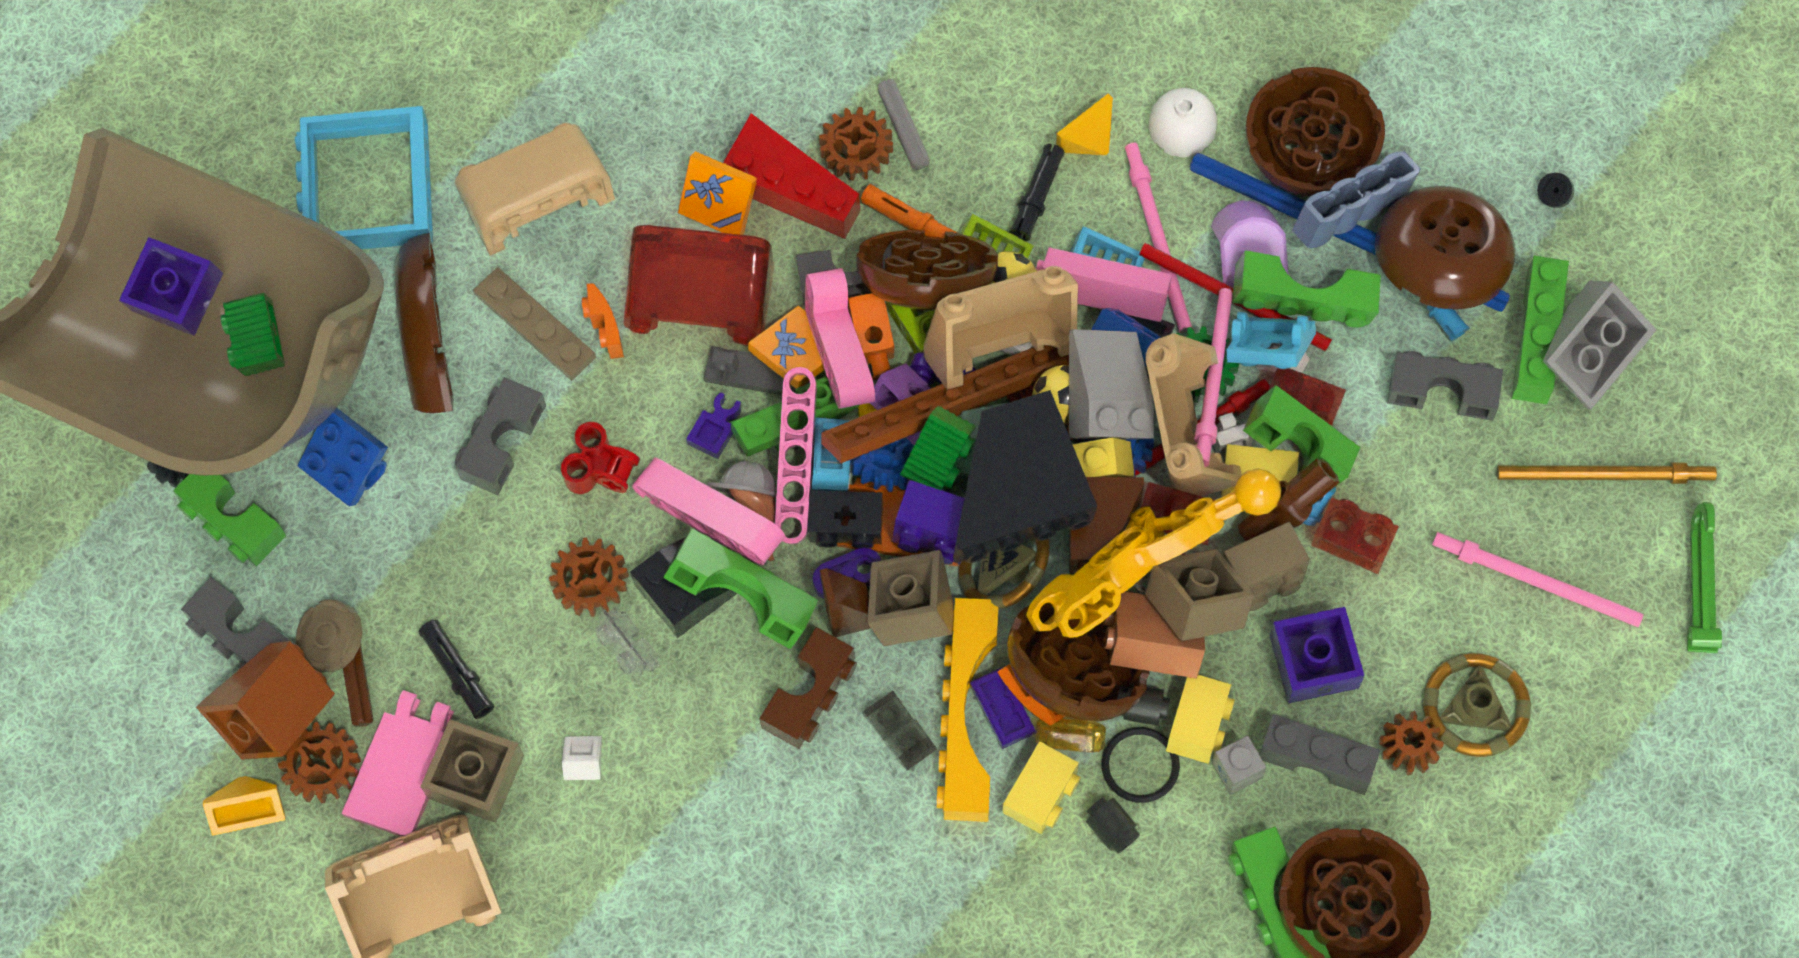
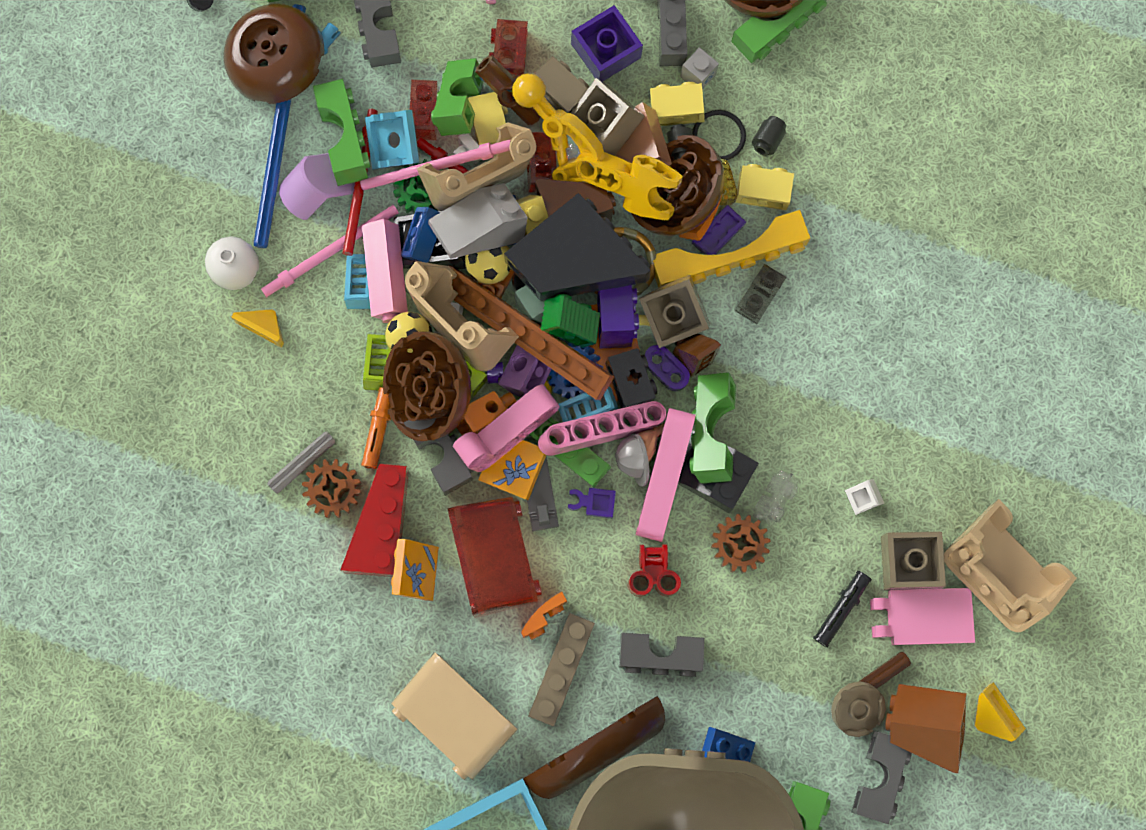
camera: 120 degrees left, 10 degrees up
(327, 750) = (951, 662): dark orange gear -> none
(795, 716) = (782, 361): reddish brown arch -> none
(1032, 204) = (325, 345): black pin -> none
(1325, 100) = (215, 135): reddish brown brick -> none
(1355, 199) = (261, 116): sand blue brick -> none

